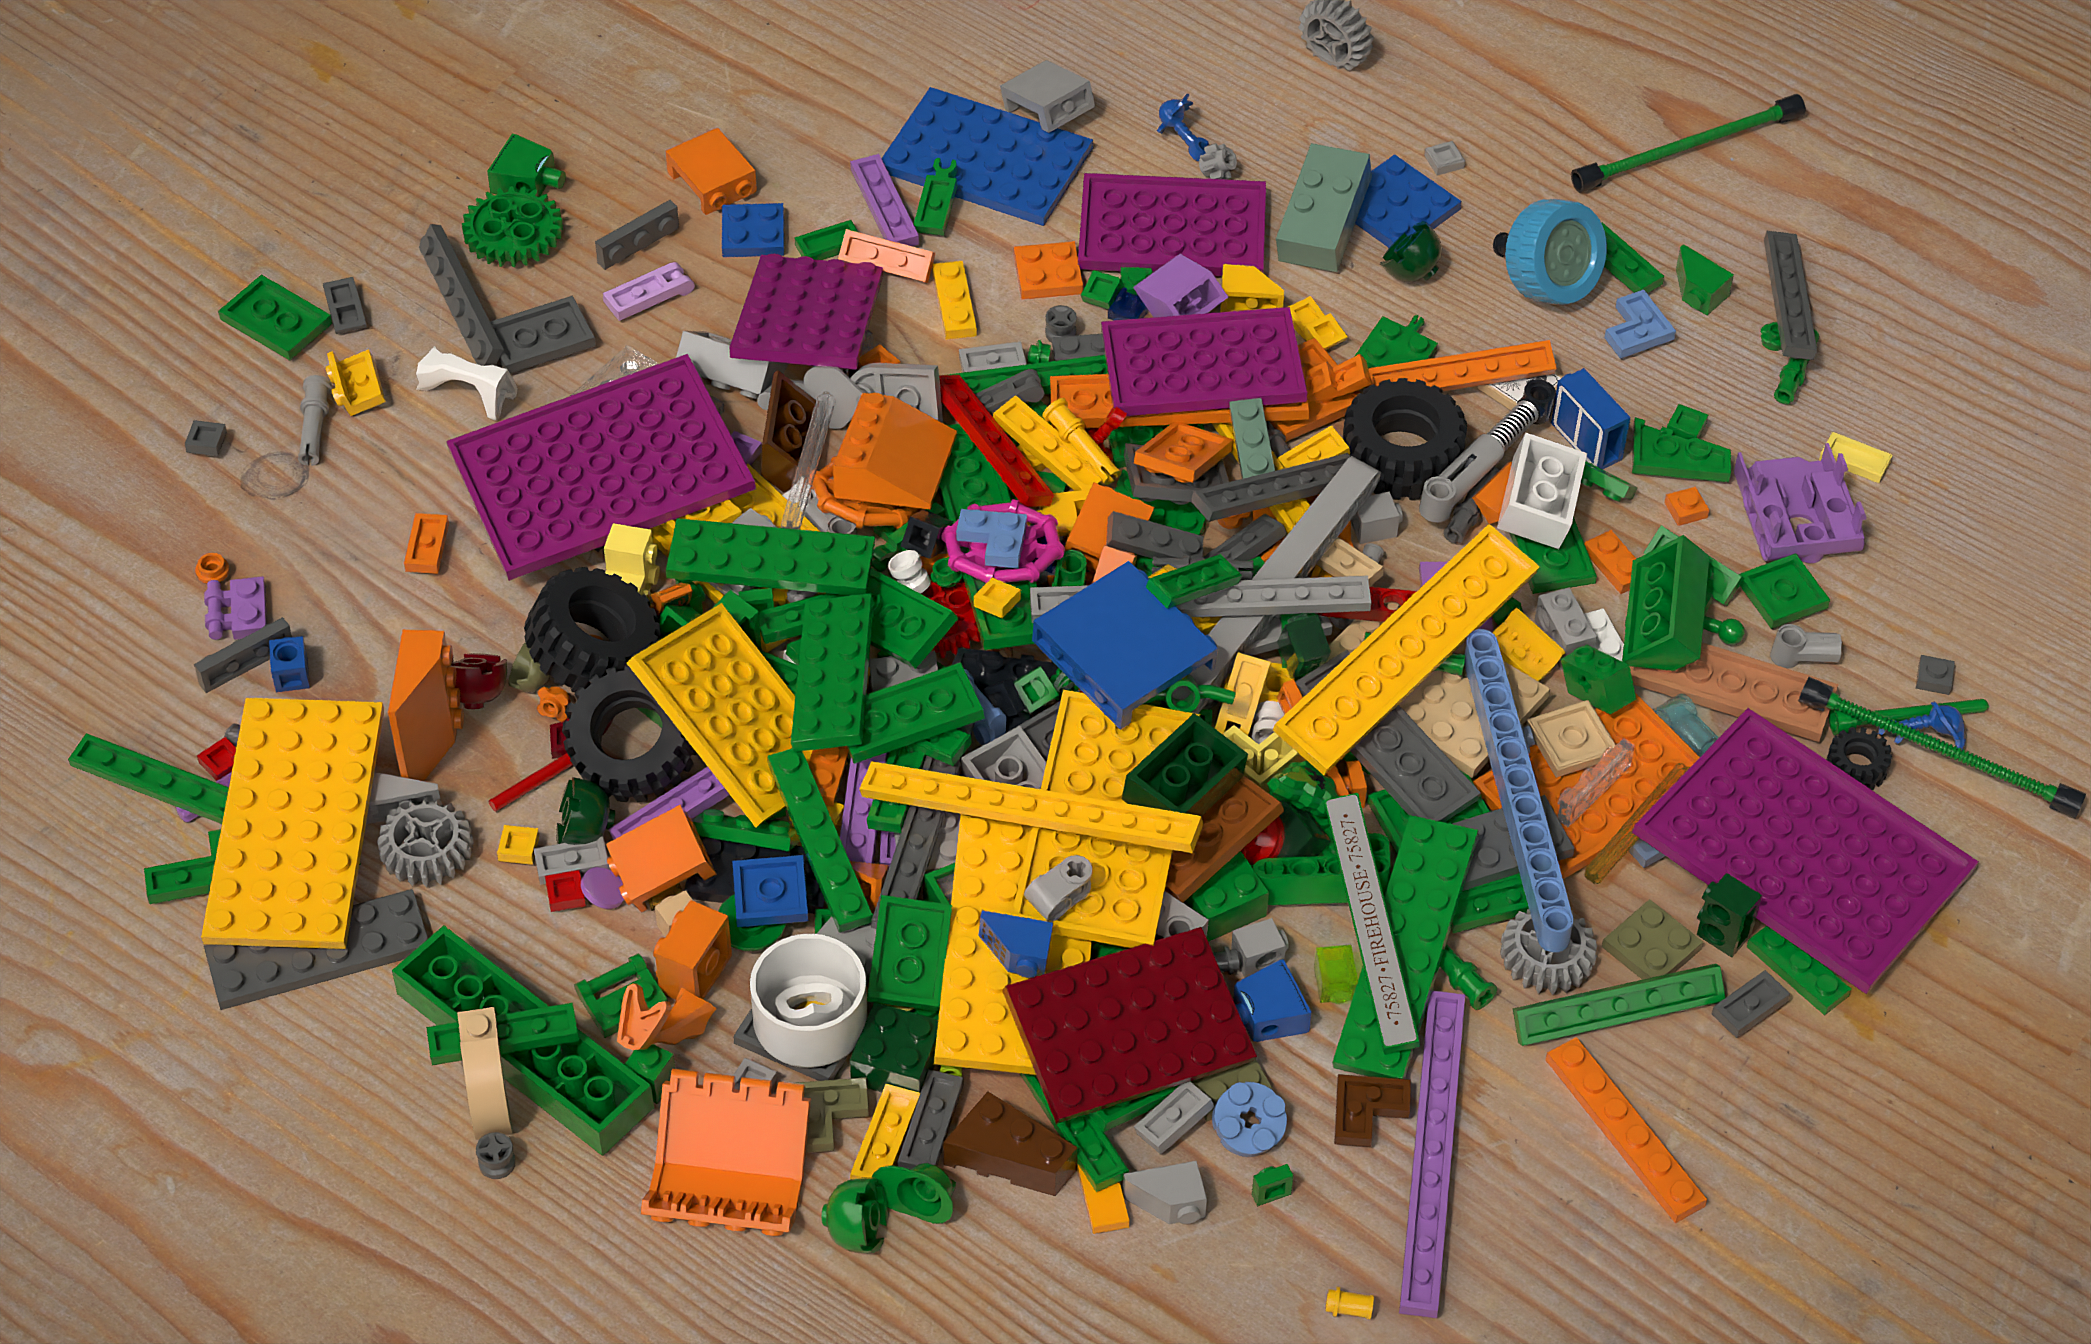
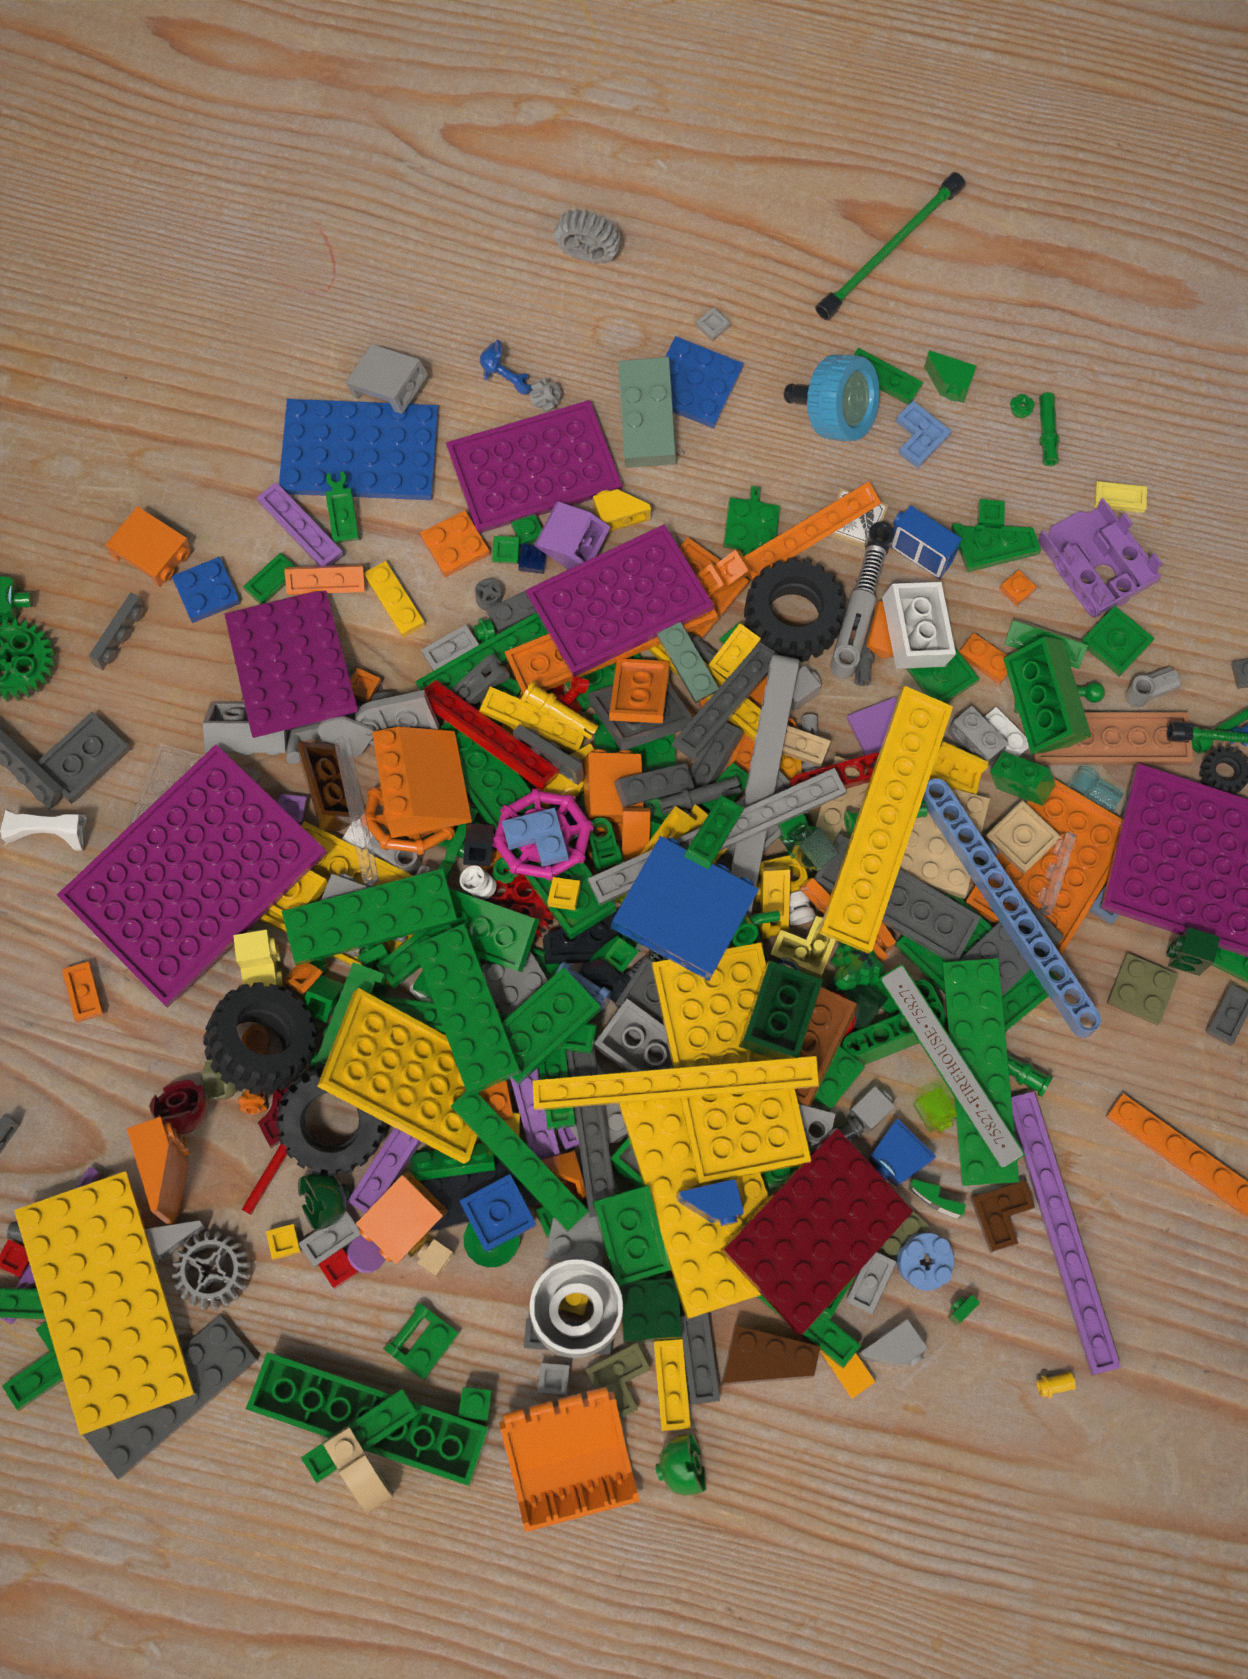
camera: 25 degrees left, 20 degrees up
(289, 664) = (36, 1155): blue brick -> none
(492, 1147) = (388, 1526): dark grey wheel -> none
(648, 290) = (149, 682): lavender plate -> none
(662, 1023) = (464, 1387): orange animal -> none
(693, 951) = (464, 1294): orange brick -> none
(918, 1191) = (719, 1421): green piece -> none
(1060, 887) = (726, 1152): light grey piece -> none
(1066, 491) = (568, 765): none -> dark grey plate
(1286, 1055) = (929, 1195): none -> green slope
(1312, 323) = (680, 522): yellow slope -> none
(1414, 254) = (730, 431): dark green cylinder -> none
(1550, 971) = (1076, 1048): light grey gear -> none
(1613, 486) = (958, 590): green plate -> none
(1618, 1004) = (1142, 1054): green plate -> none
(1624, 838) = (1094, 911): clear yellow axle -> none
(1790, 295) = (1023, 368): dark grey plate -> none

